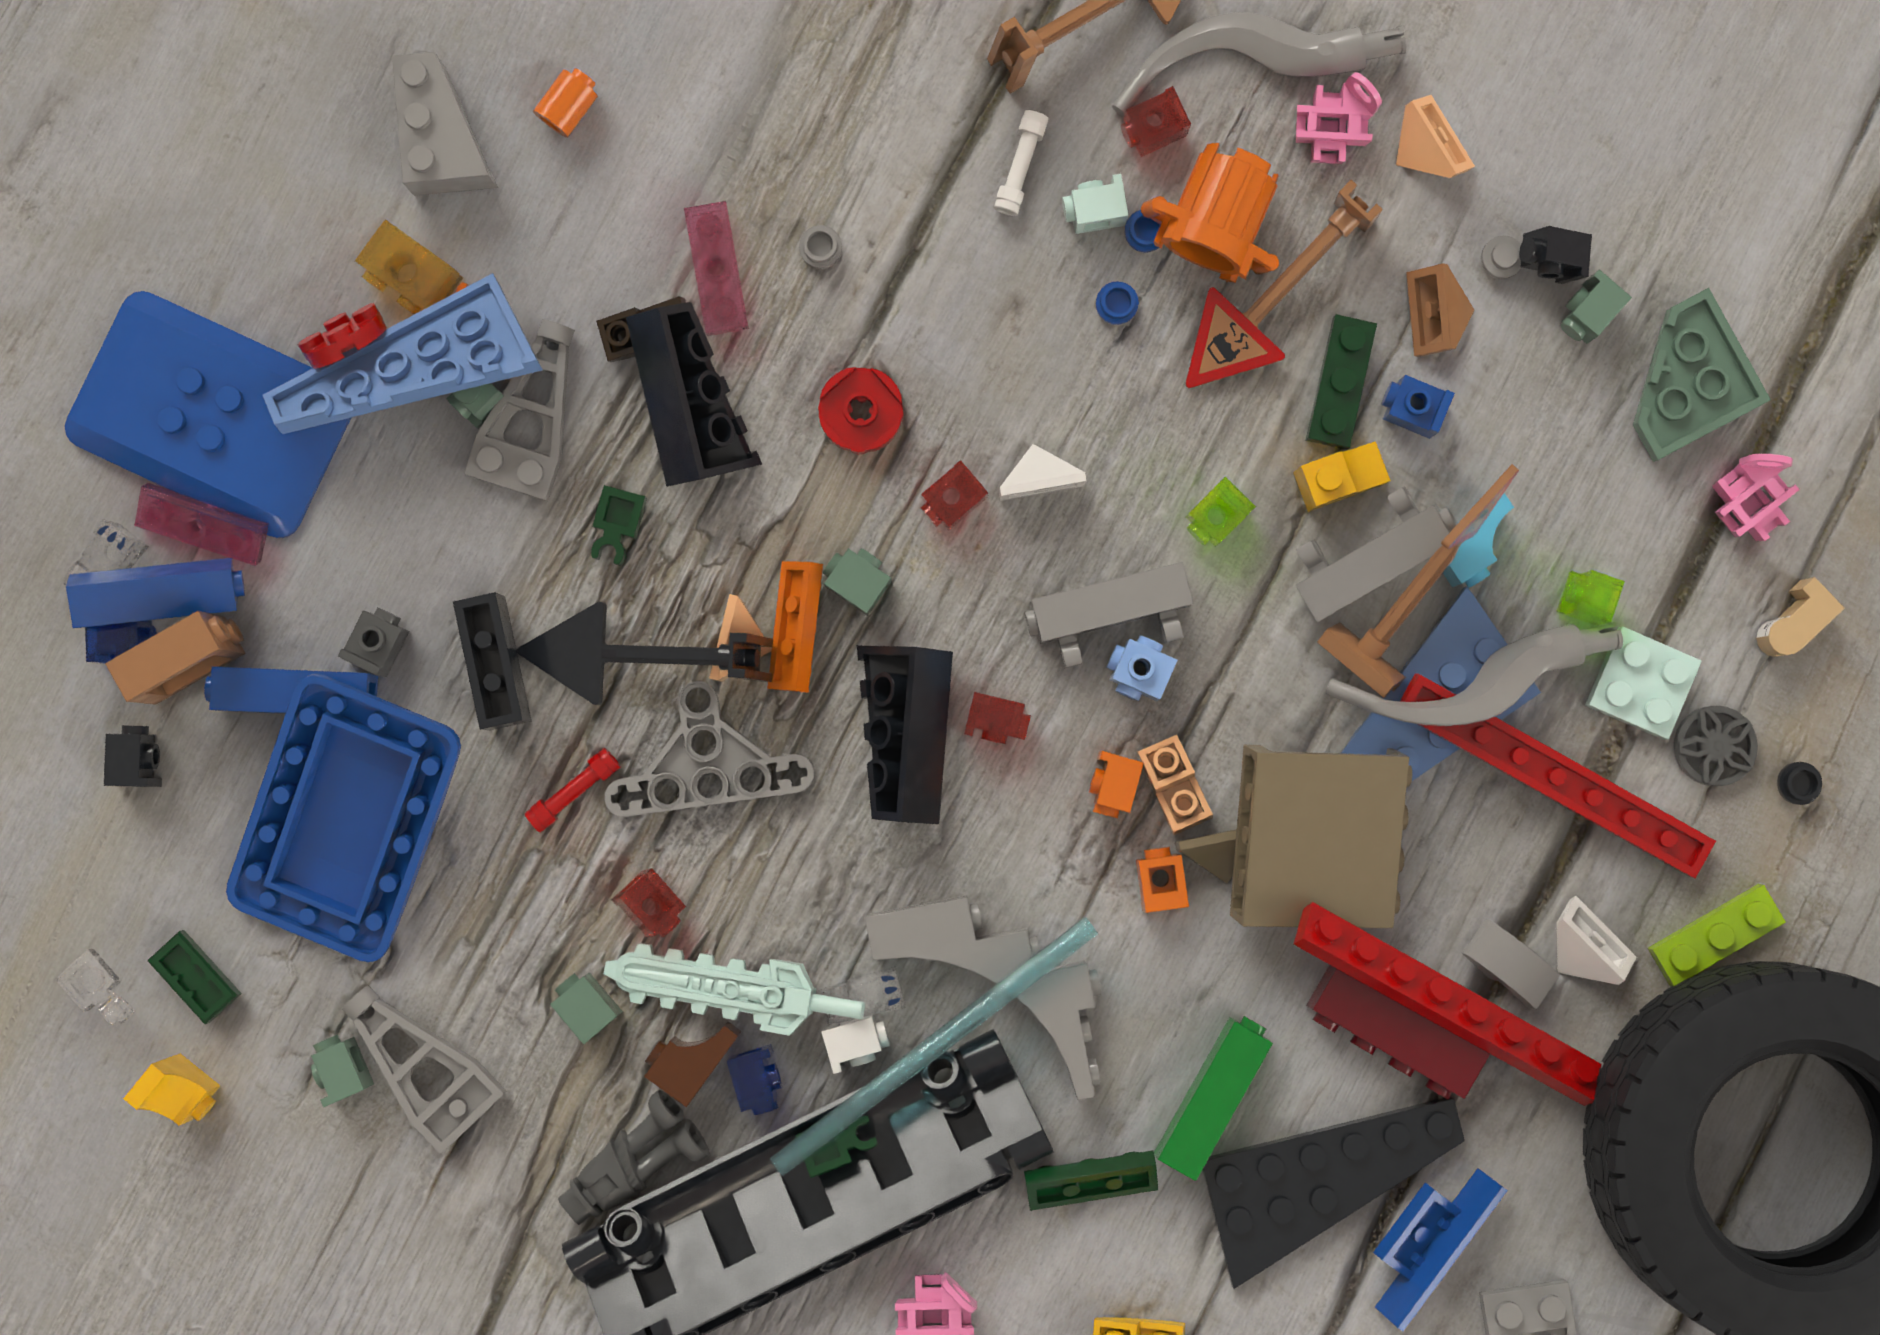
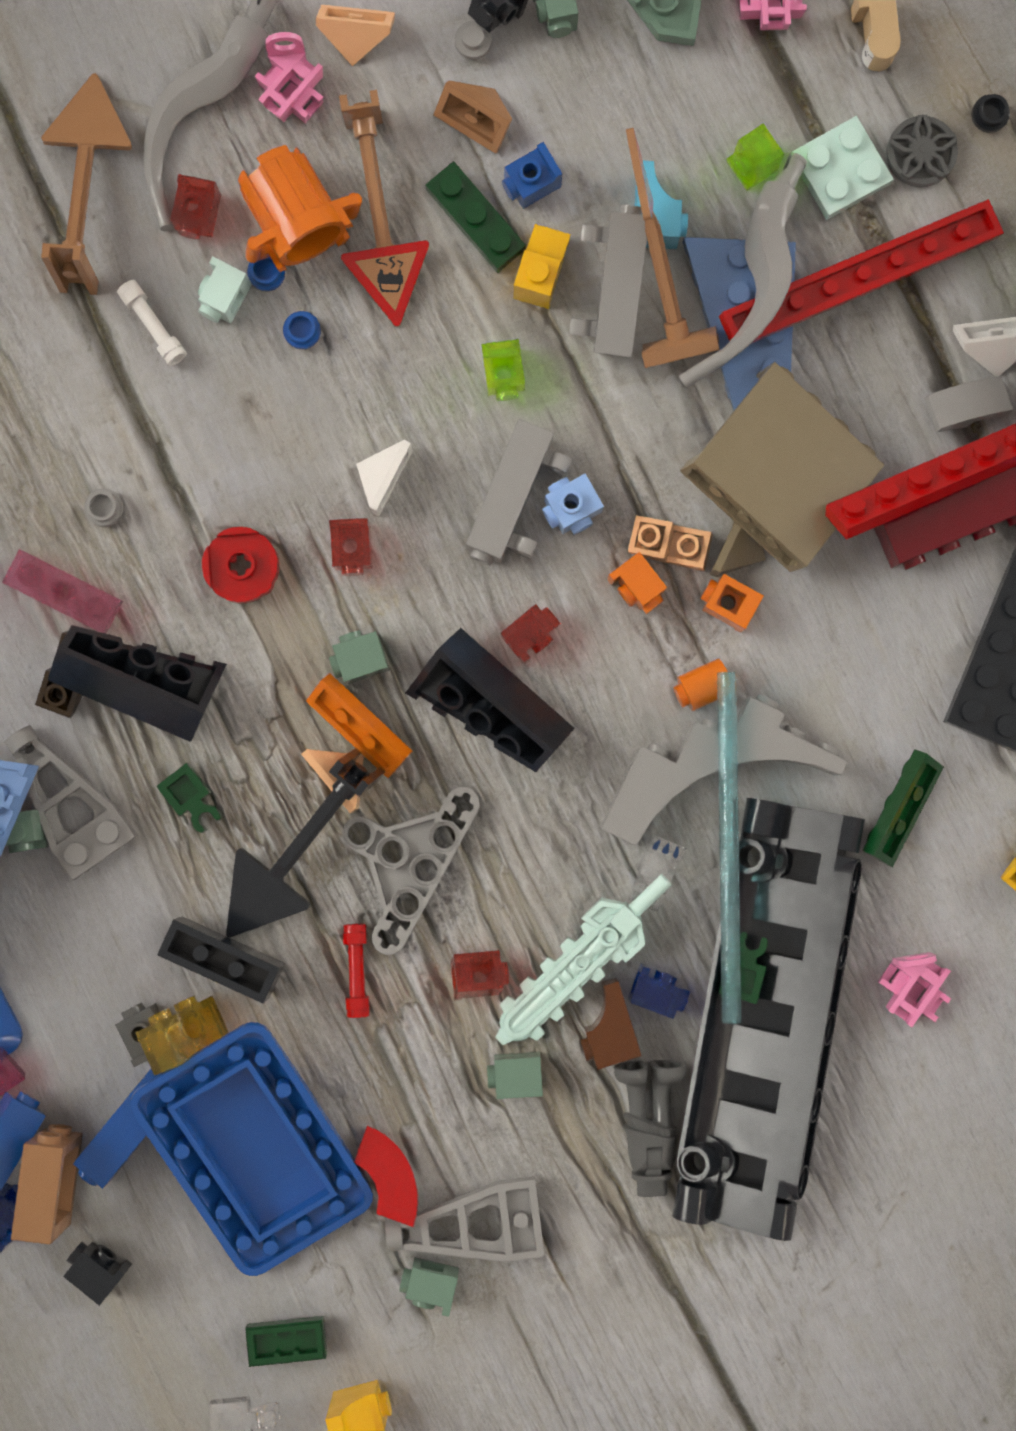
camera: 55 degrees left, 0 degrees up
(396, 676) = (178, 1036): none -> clear yellow brick
(412, 960) = (392, 1177): none -> red tile
(854, 1041) = (683, 902): white brick -> none
(1063, 908) = (699, 685): none -> orange brick
(1213, 1097) = (908, 679): green brick -> none

